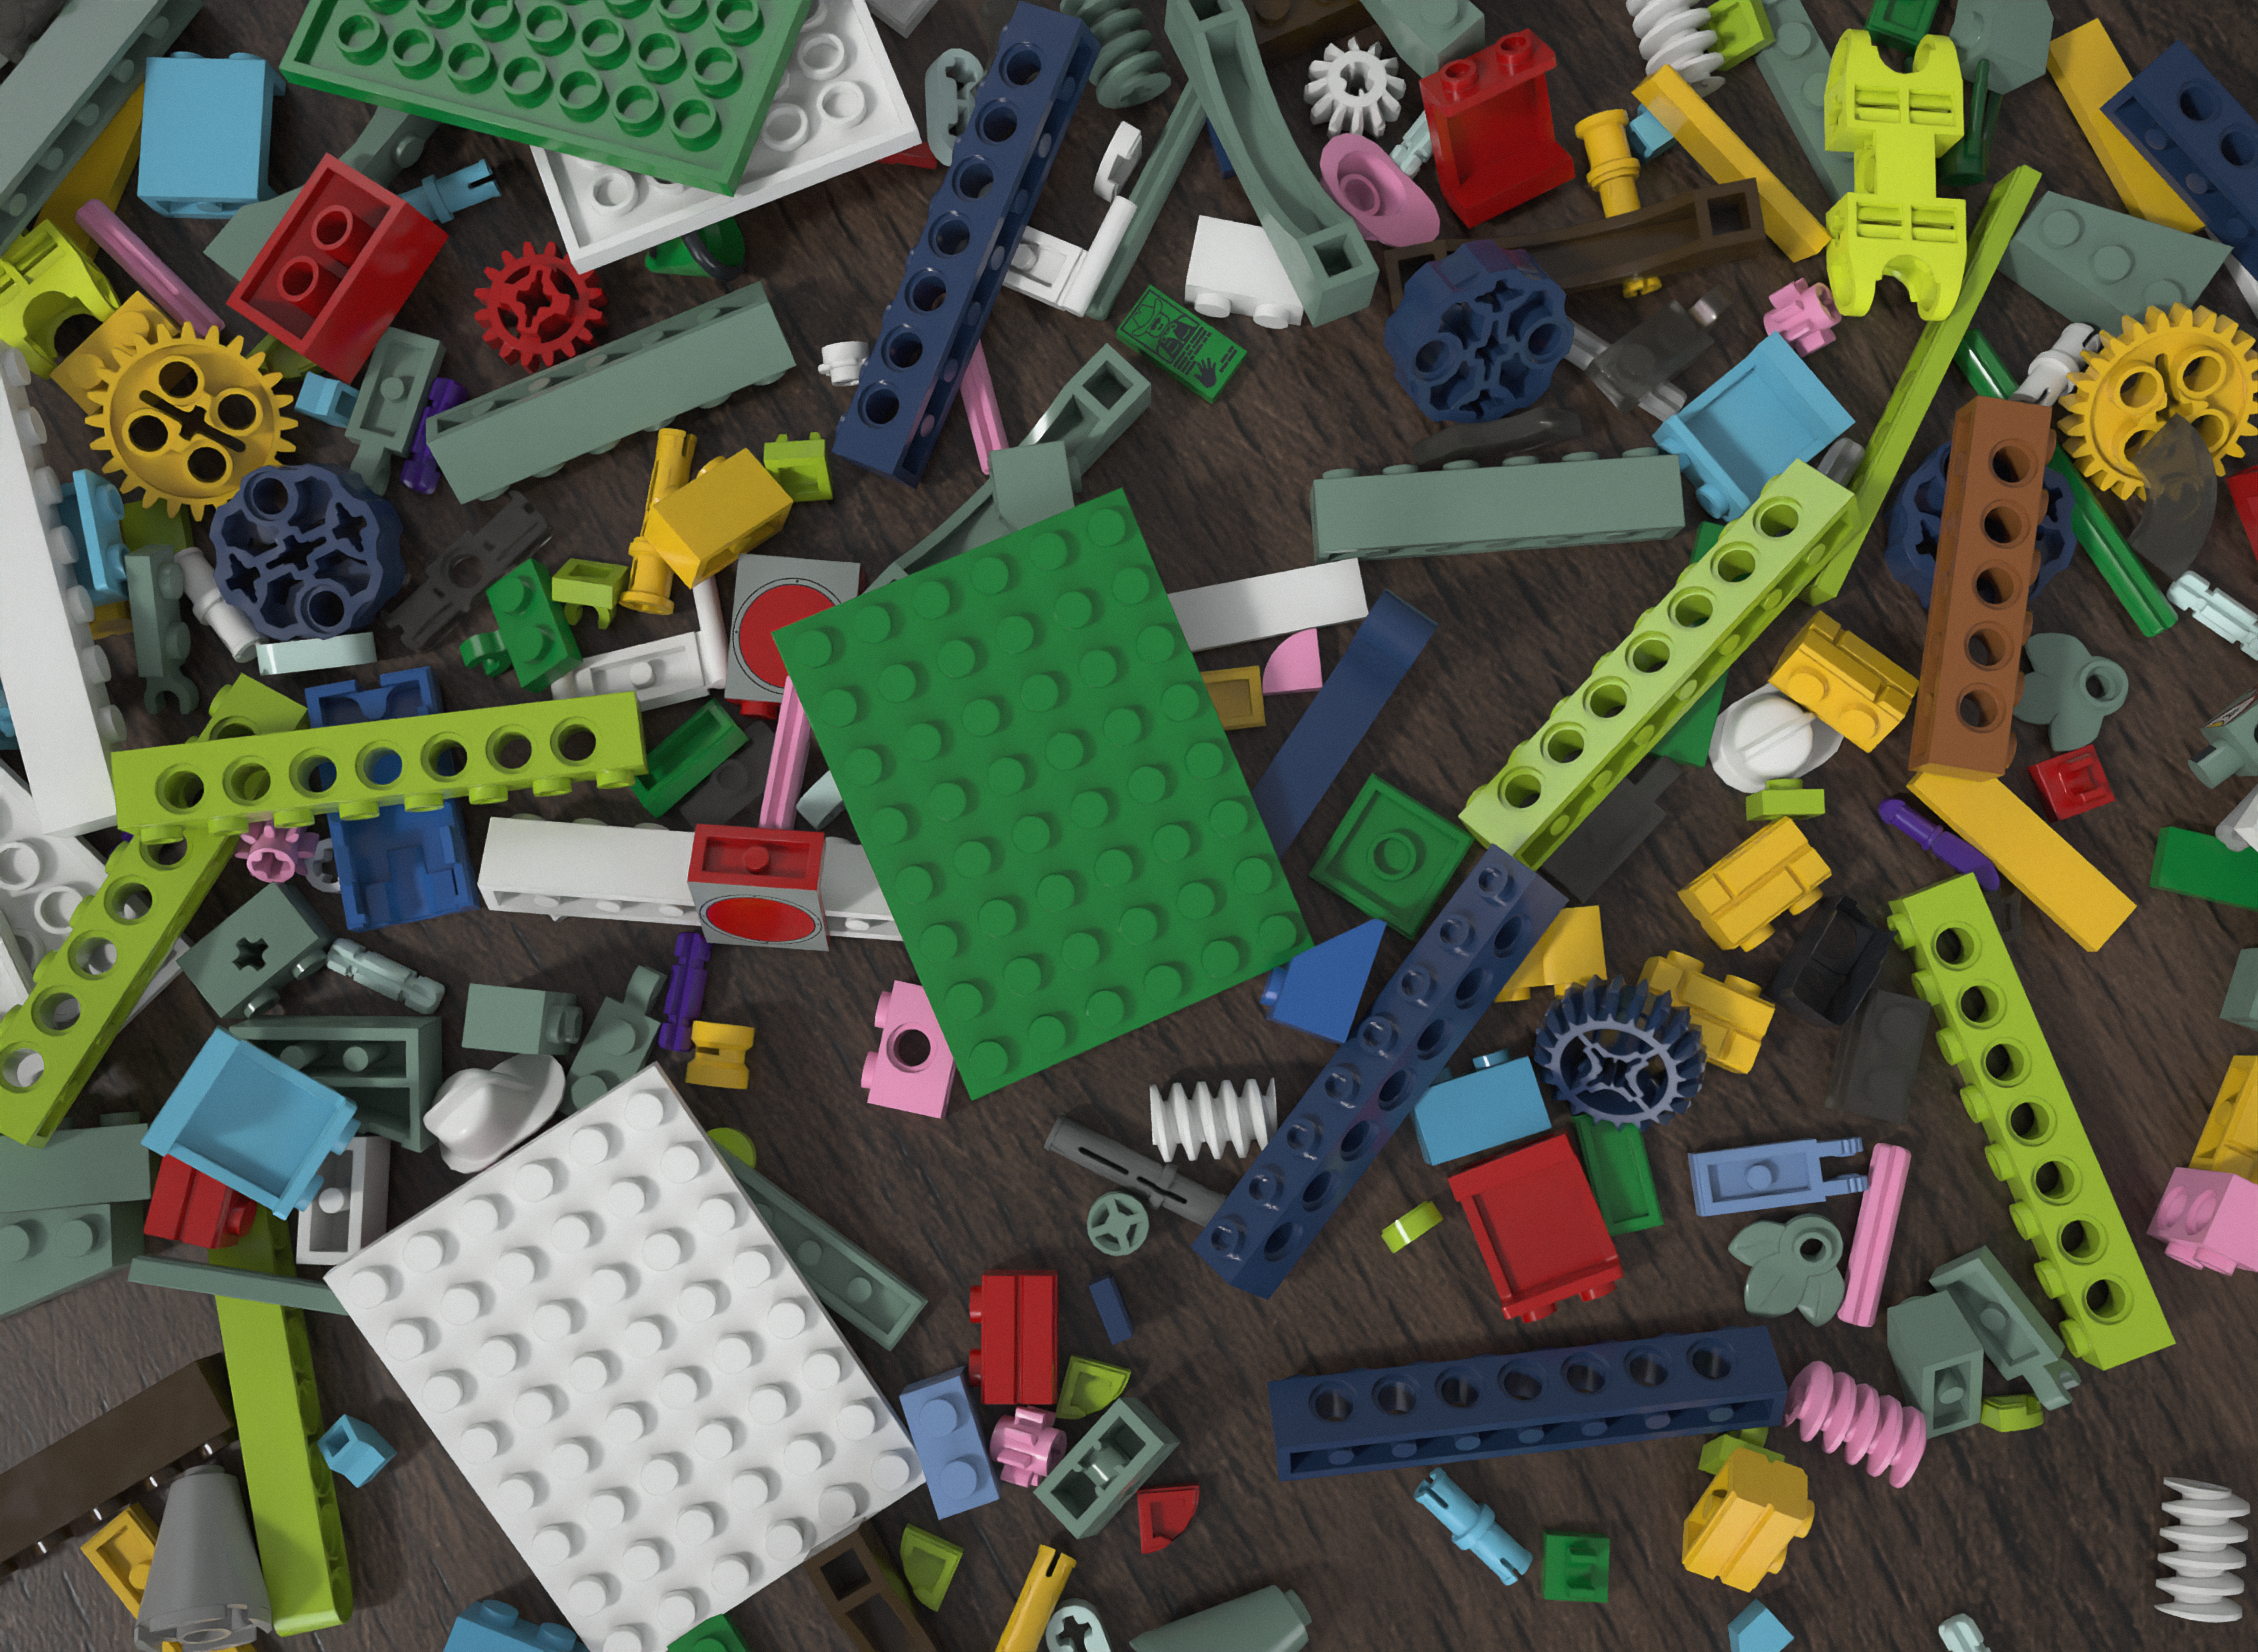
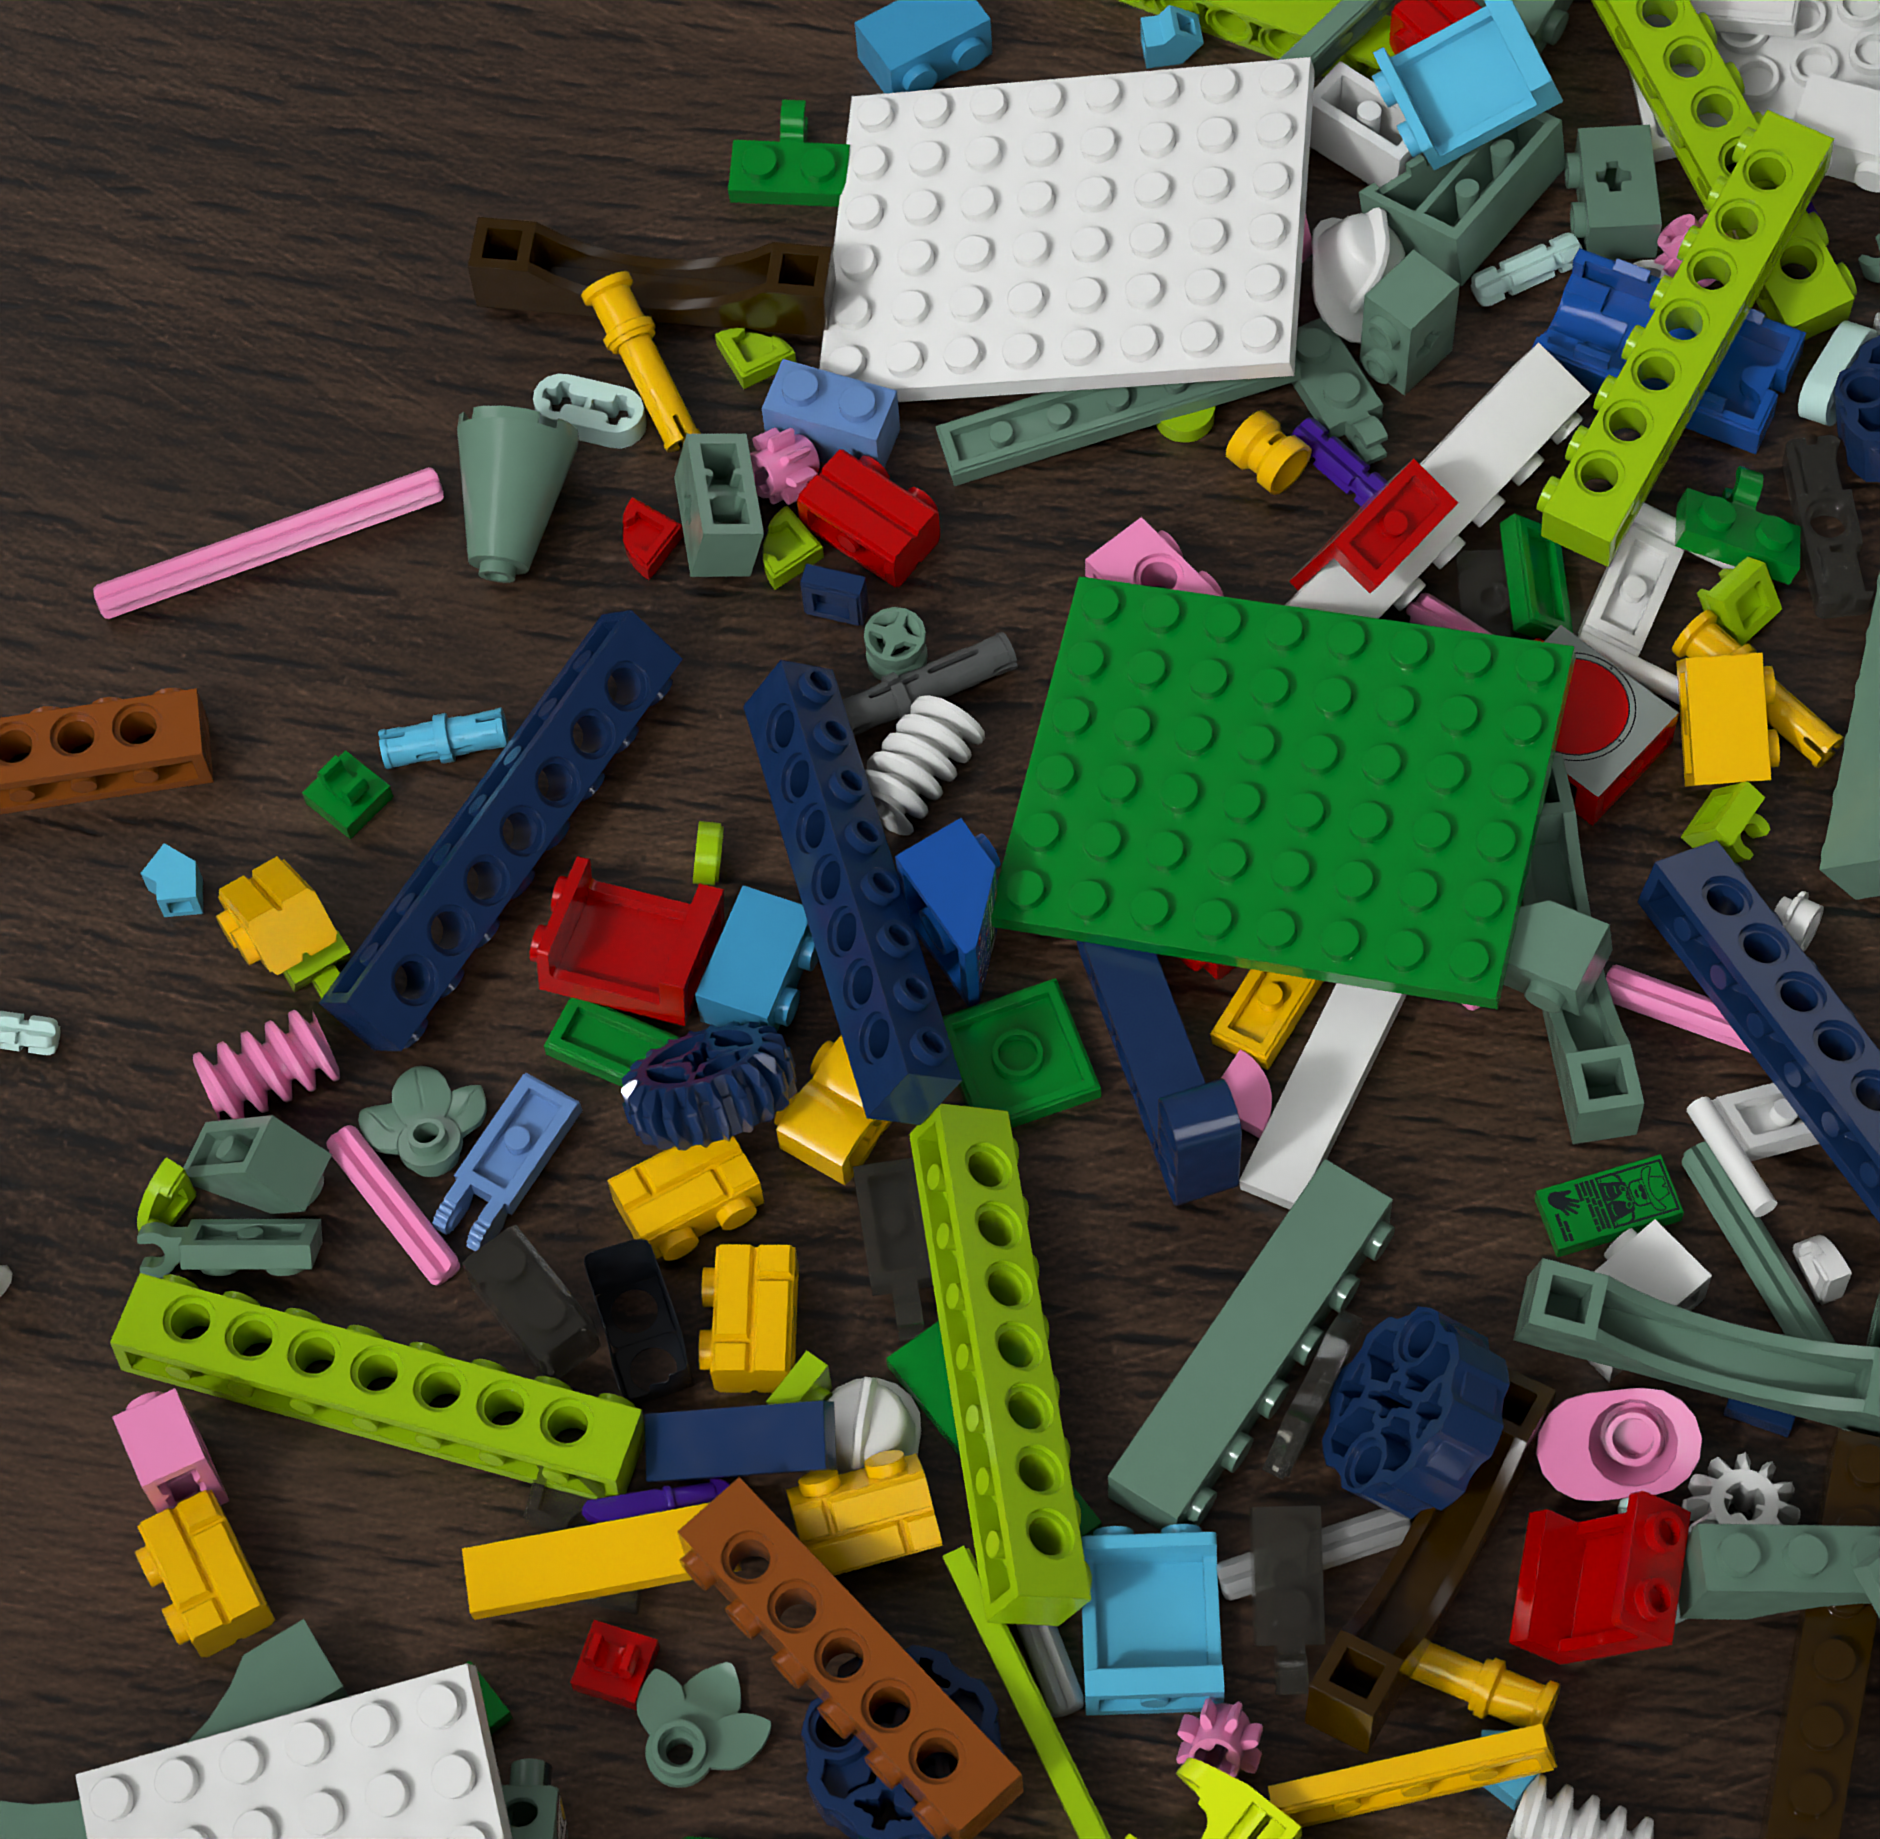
camera: 130 degrees right, 20 degrees down
(1865, 809) = (740, 1441): none -> dark blue tile

